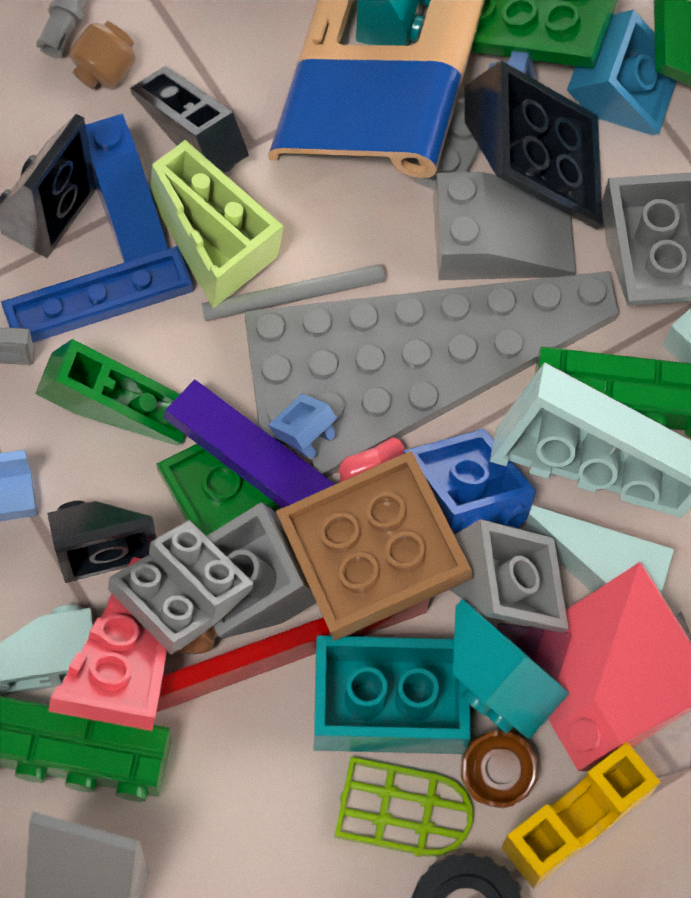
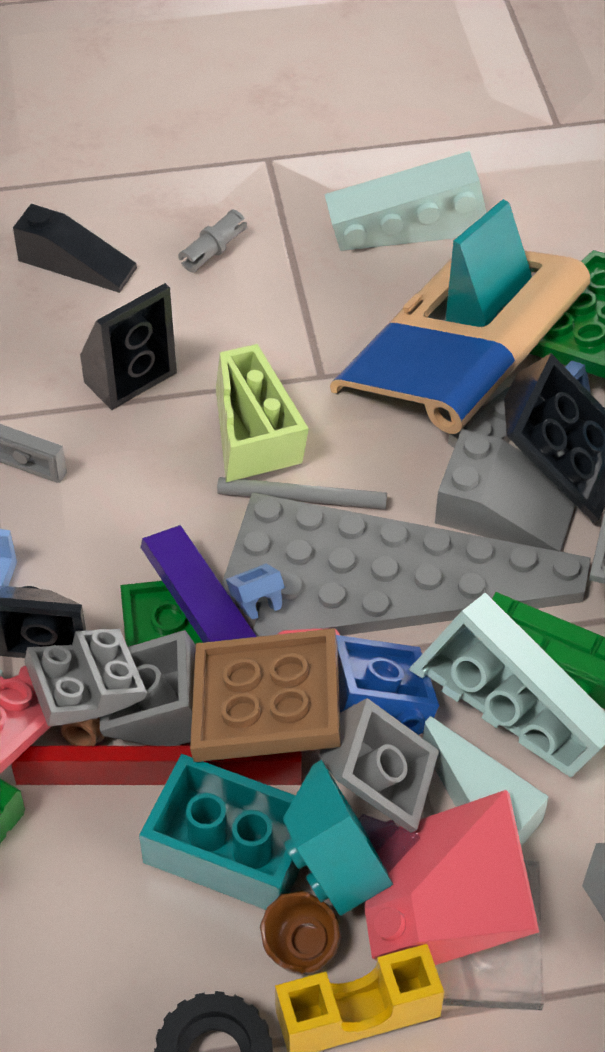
camera: 25 degrees right, 15 degrees down
(99, 295) = (140, 447): blue tile -> none
(102, 55) = (226, 275): medium nougat head -> none
(107, 392) = (104, 515): green slope -> none
(124, 189) = (195, 374): blue slope -> none
(192, 116) = (279, 339): black slope -> none
(391, 791) = (182, 946): lime window -> none

